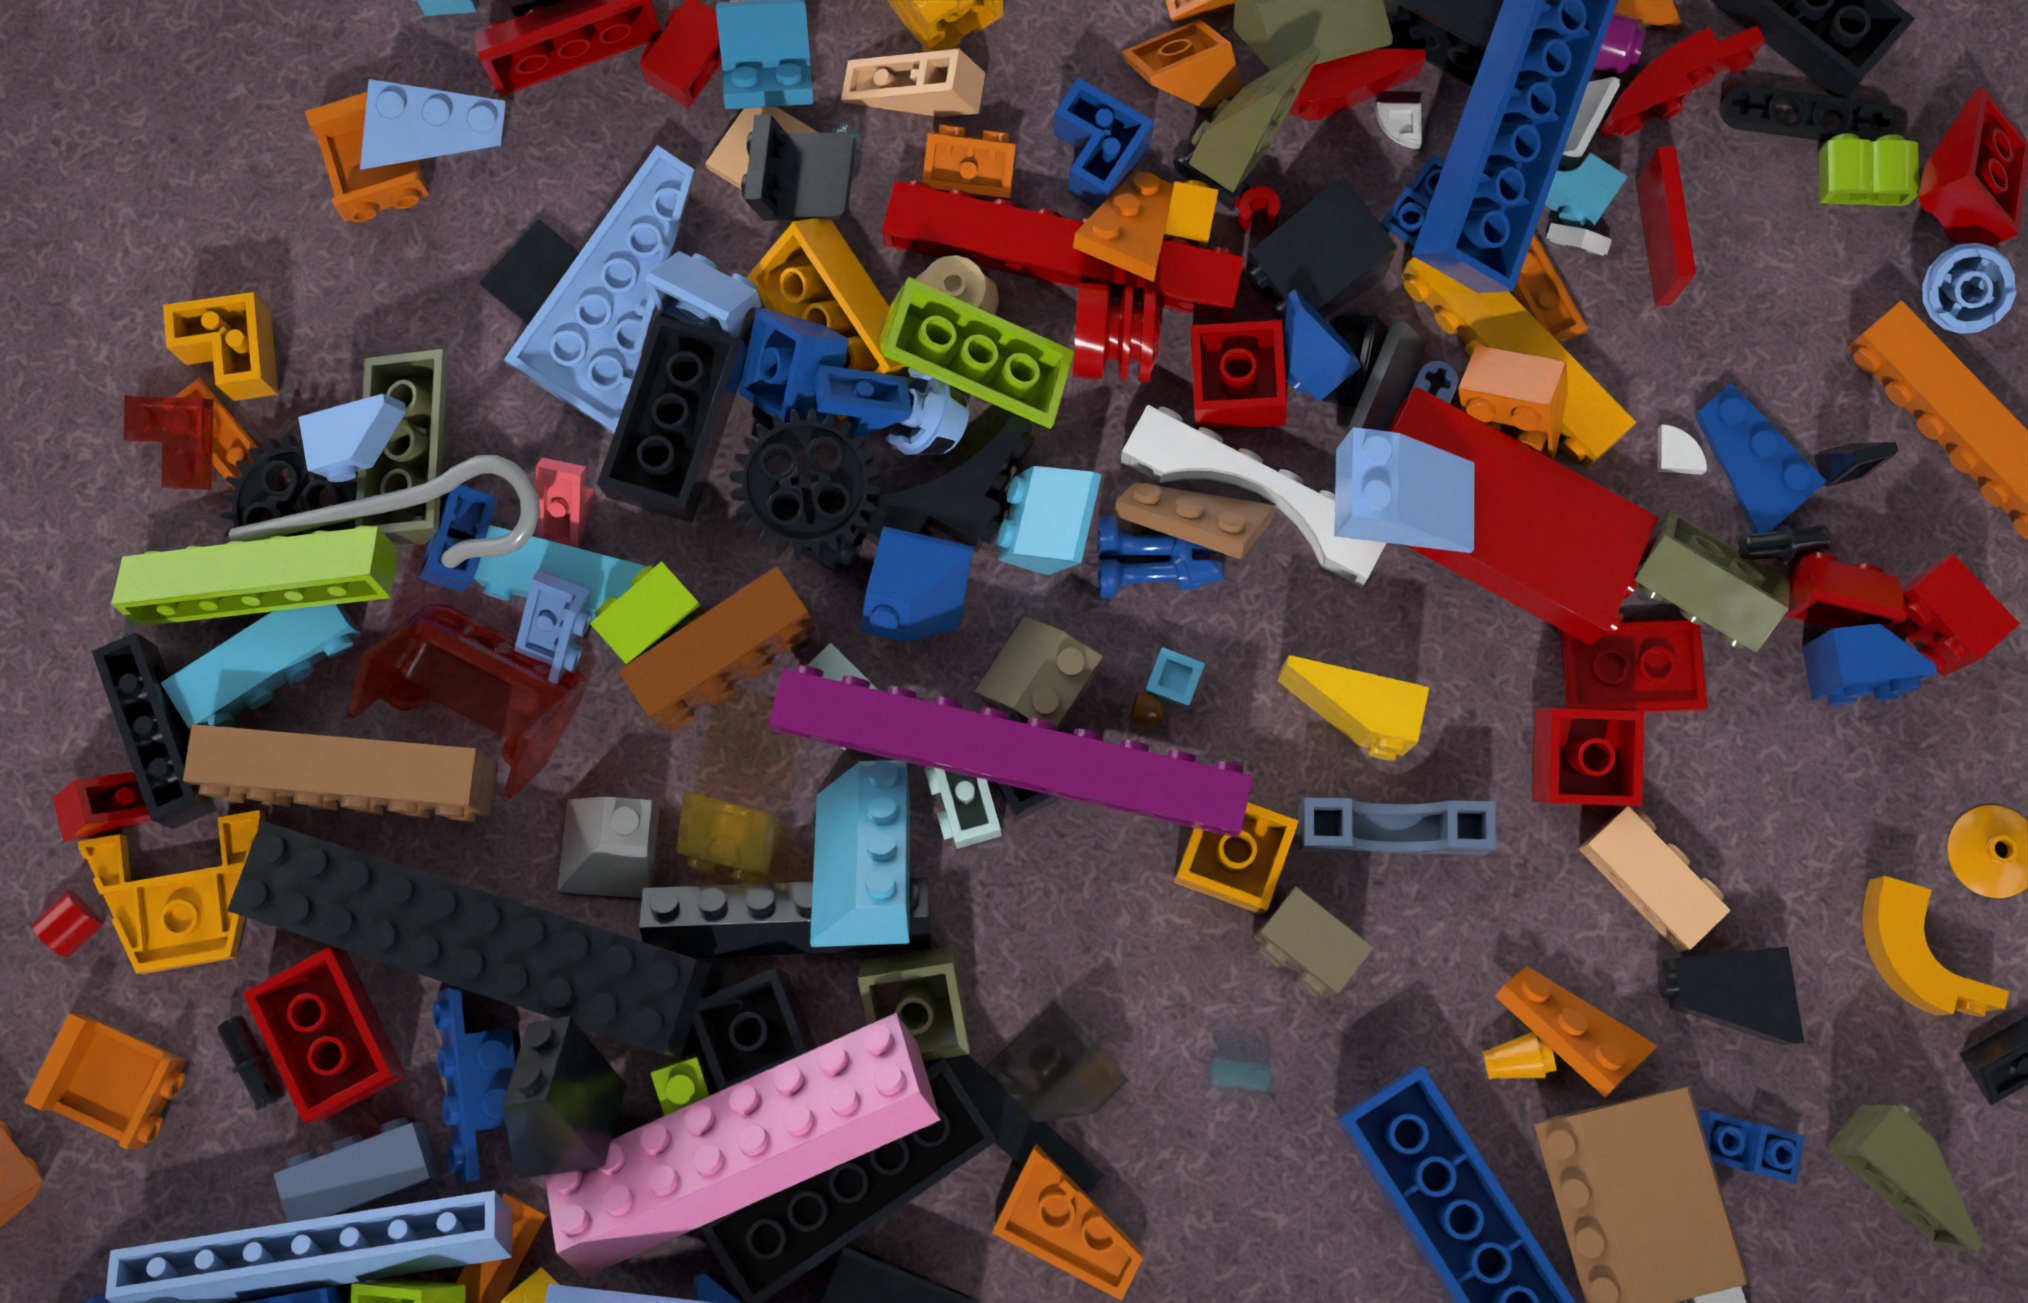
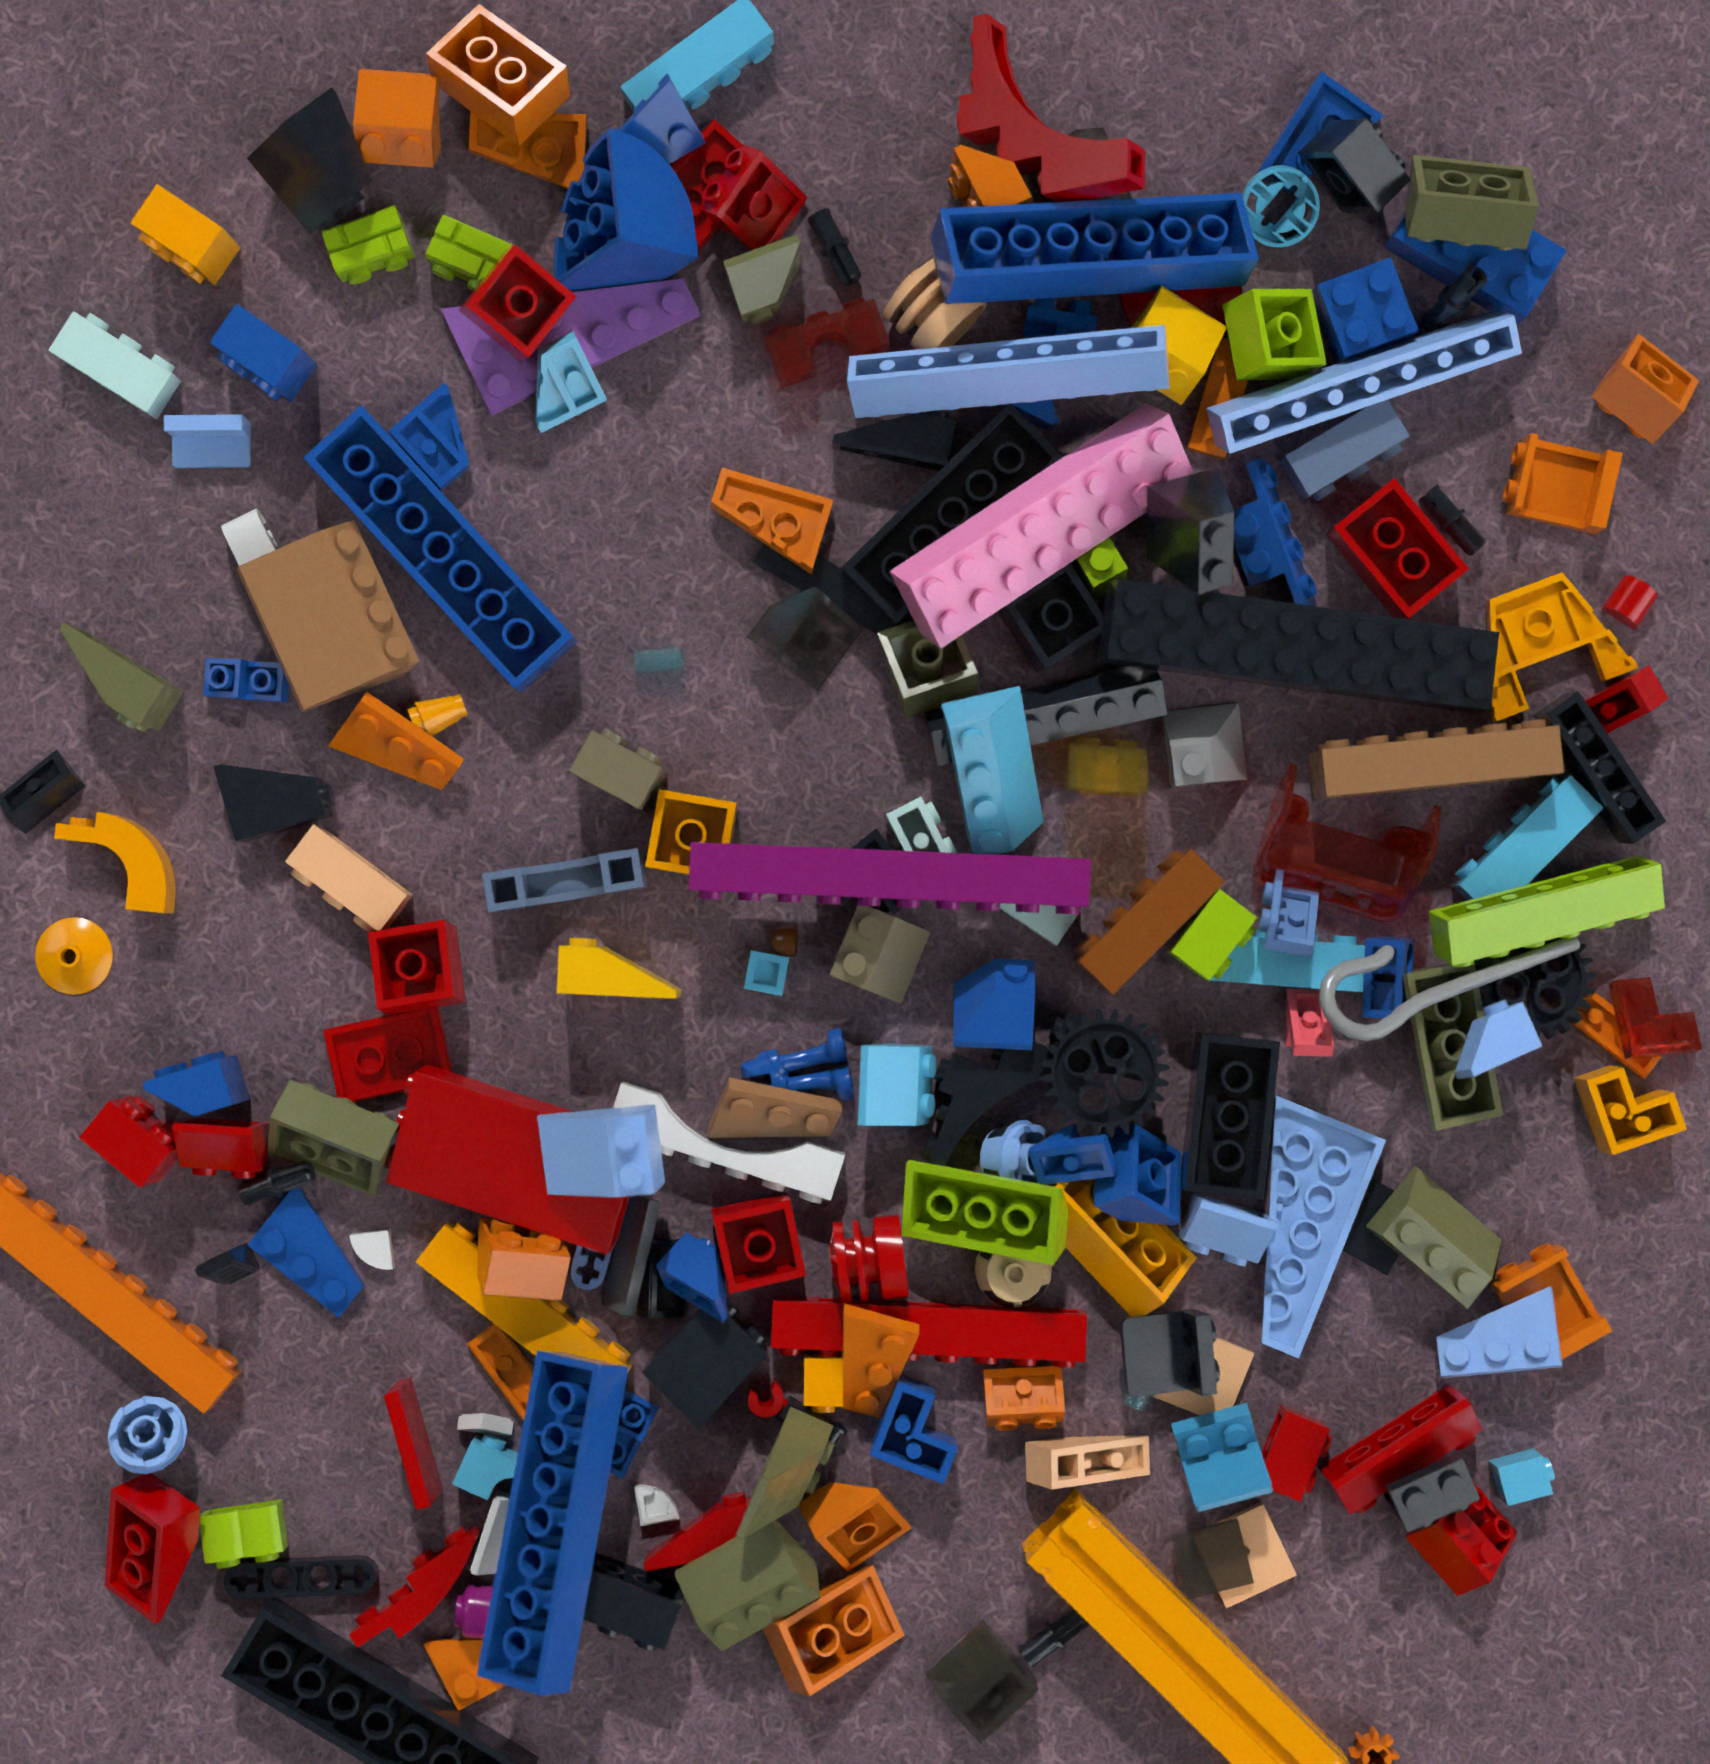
camera: 170 degrees right, 10 degrees up
(471, 245) = (1438, 1237): none -> olive slope

